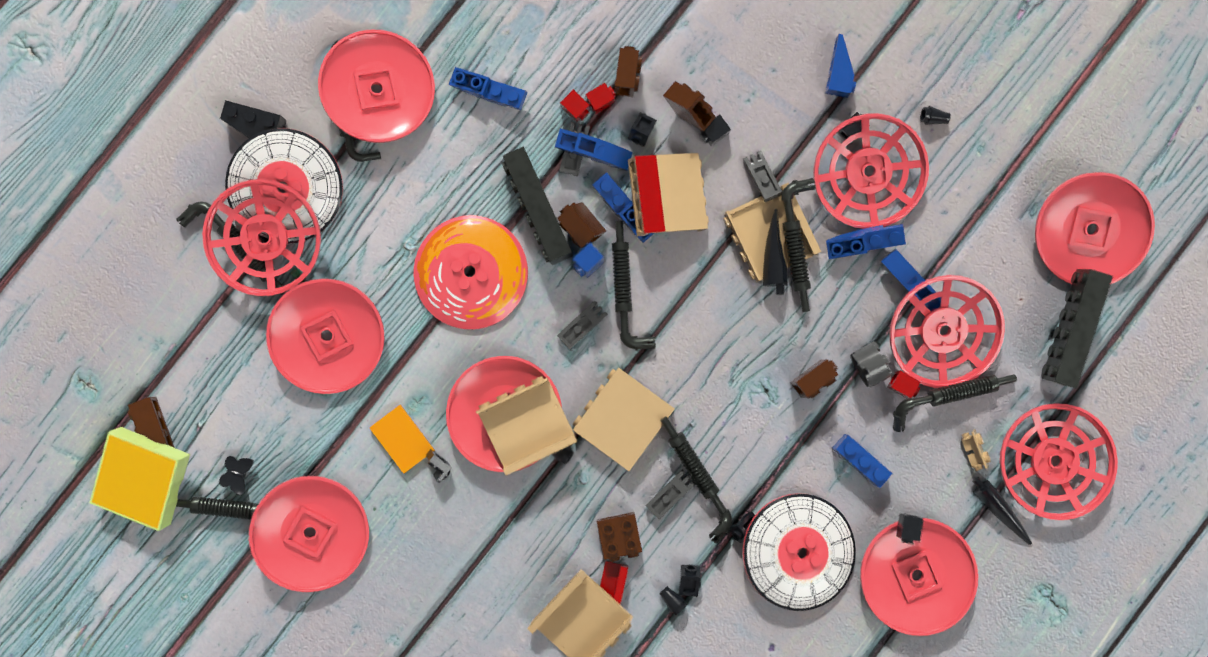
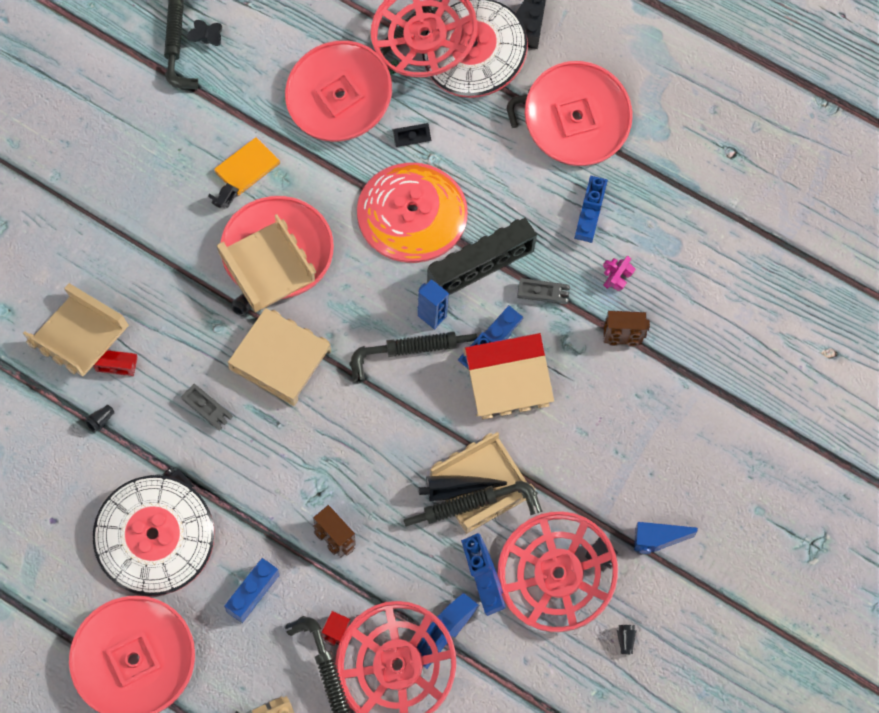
camera: 80 degrees right, 20 degrees down
(304, 561) = (150, 69): coral dish -> none
(379, 264) = (411, 134): none -> black slope
(559, 72) = (622, 267): none -> dark pink hips
(575, 106) = (585, 287): red brick -> none
(580, 224) = (468, 298): reddish brown brick -> none
(581, 325) = (369, 311): dark grey hinge -> none
(593, 148) = (545, 303): blue slope -> none
(600, 98) = (596, 309): red brick -> none
(619, 536) = (162, 362): reddish brown brick -> none
(642, 129) = (572, 350): black bracket -> none
(689, 105) = (599, 385): reddish brown brick -> none
(689, 580) = (120, 431): black bracket -> none
(700, 477) = (225, 433): pearl dark grey piece -> none
(715, 131) = (579, 418): black brick -> none
(763, 177) = (539, 468): dark grey hinge -> none
(871, 364) = (353, 588): dark grey brick -> none
(909, 528) = (183, 636): black brick -> none

